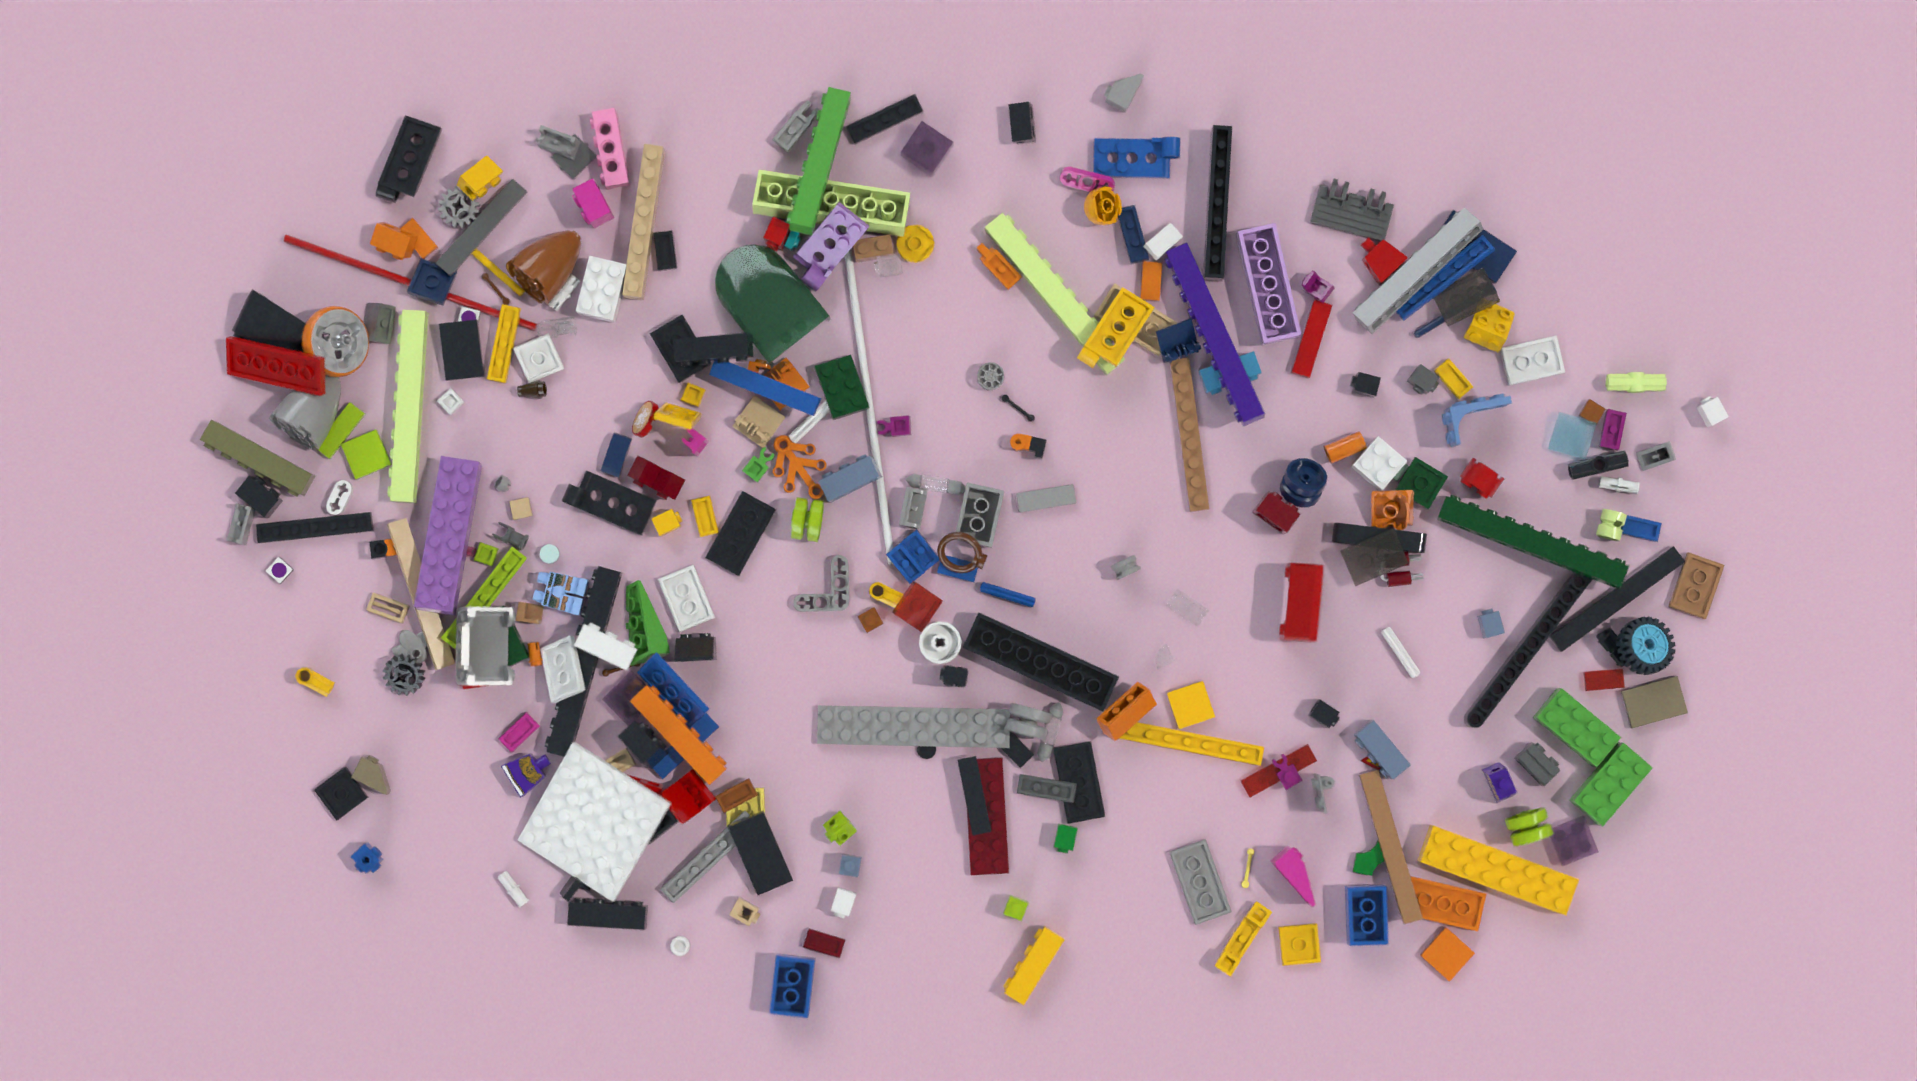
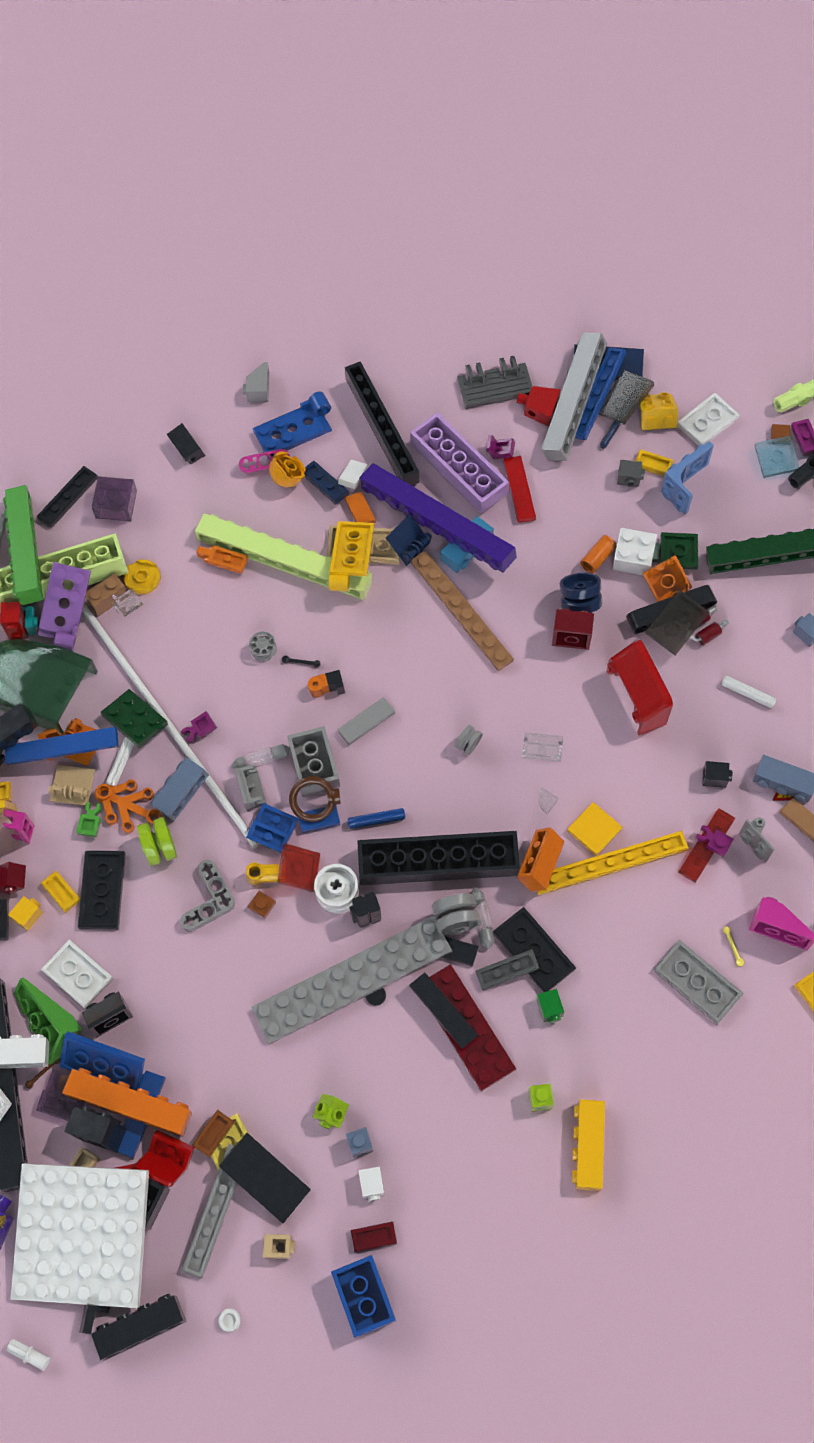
camera: 25 degrees left, 20 degrees down
(1242, 938) = (768, 1011): yellow slope -> none
(1365, 384) = (585, 499): black brick -> none
(1482, 478) = (726, 519): red brick -> none

